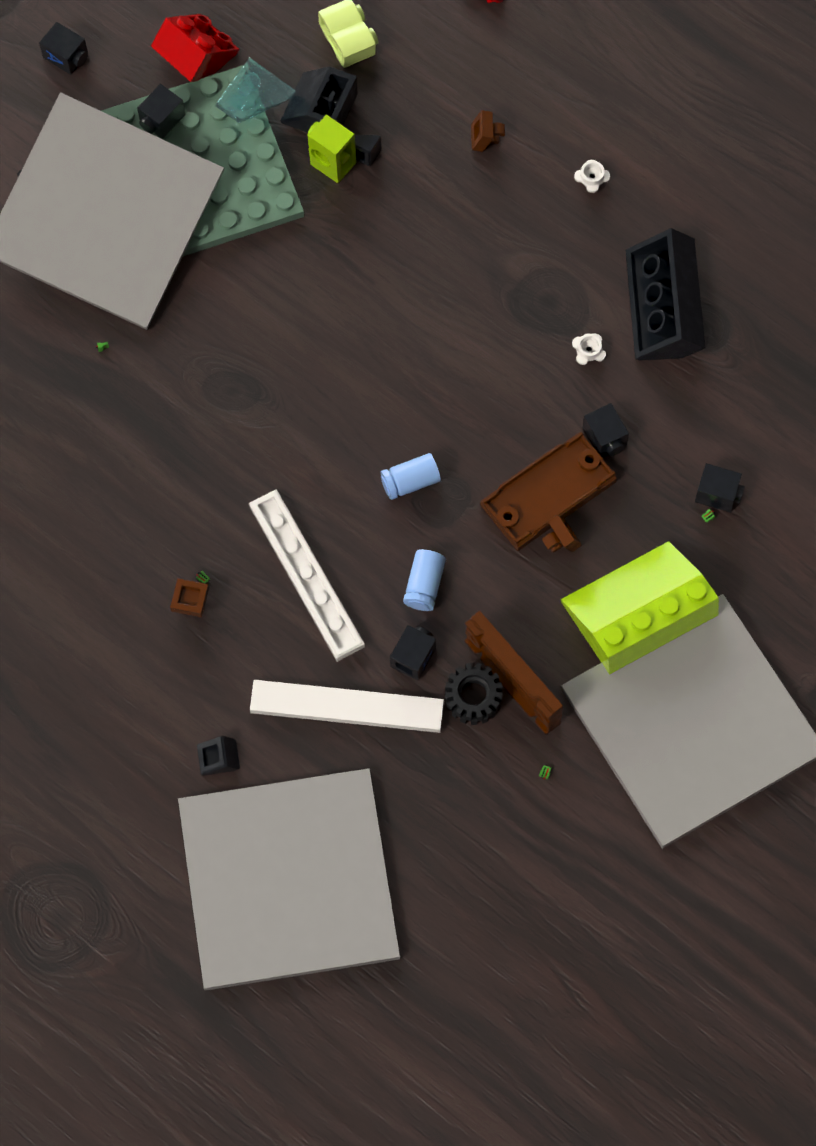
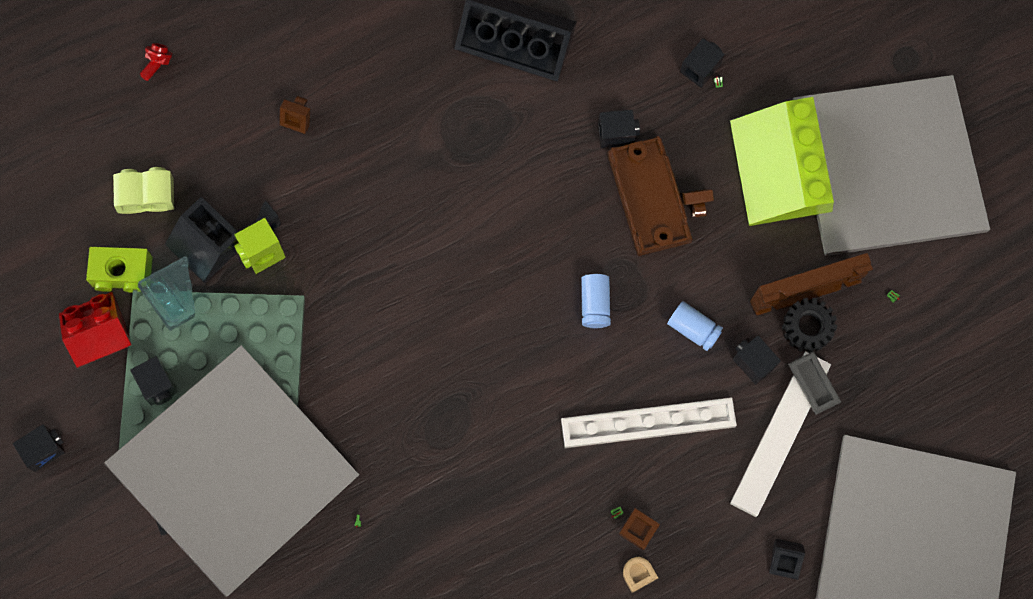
camera: 75 degrees left, 5 degrees up
(148, 618) = (638, 573): none -> tan tile
(261, 28) = (105, 260): none -> lime brick
(410, 715) = (814, 383): none -> dark grey tile
(589, 340) = (537, 106): white plate -> none
(595, 168) = (374, 39): white plate -> none

